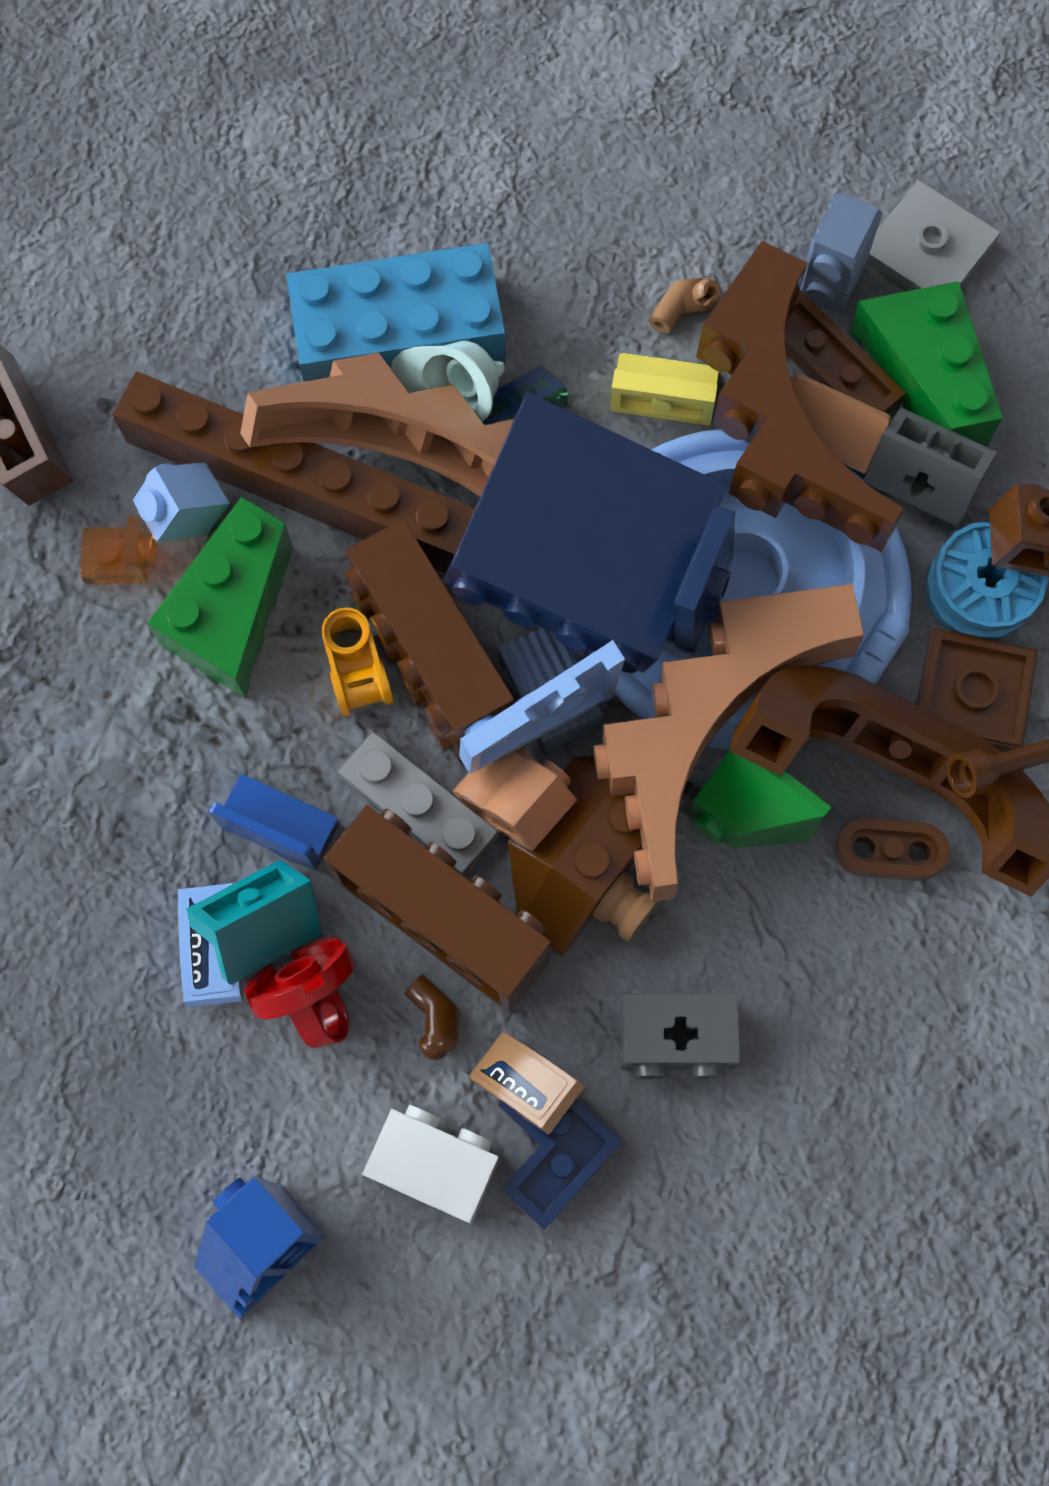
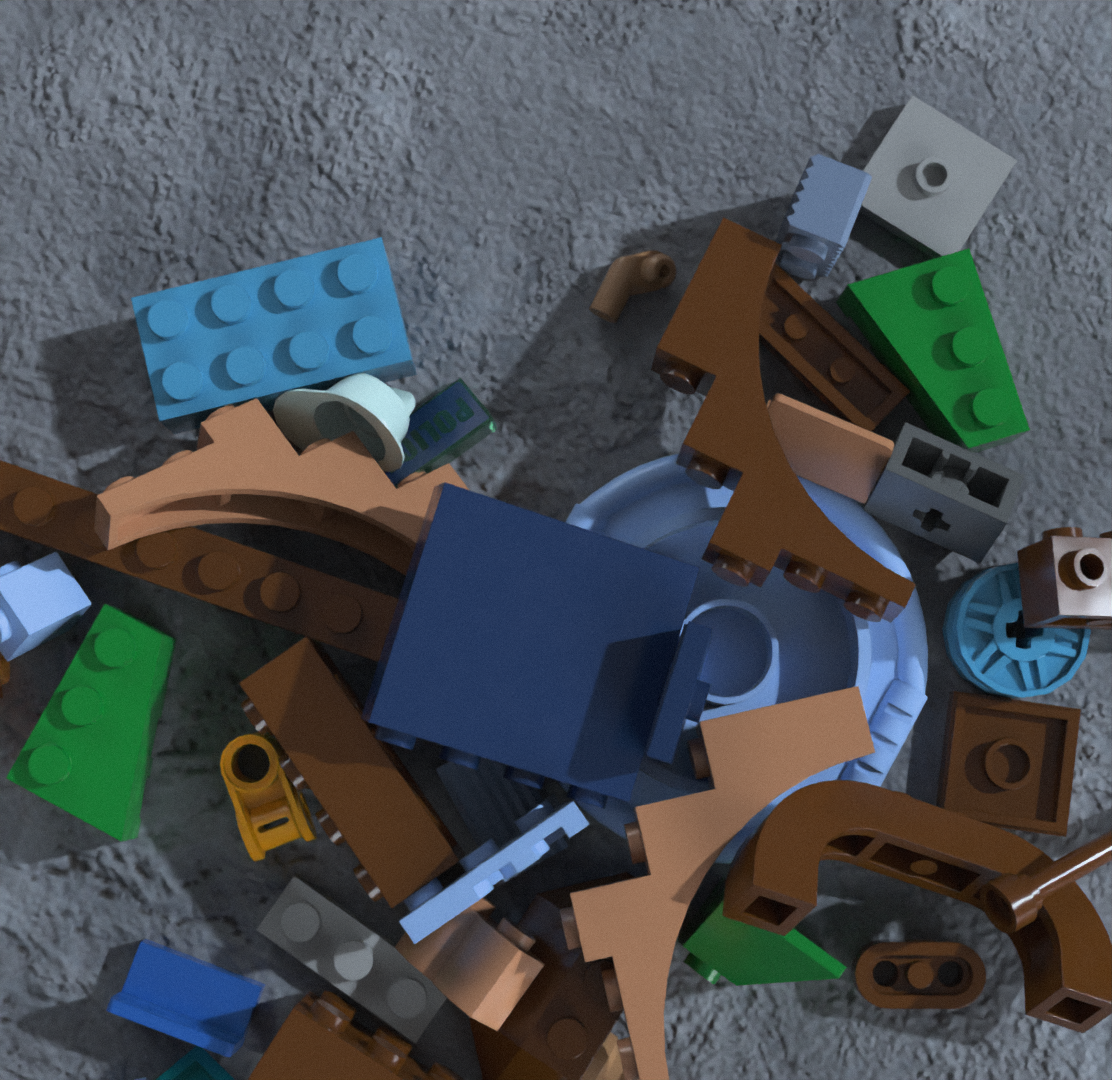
camera: 10 degrees left, 10 degrees up
(664, 389) = (612, 398): light yellow panel -> none

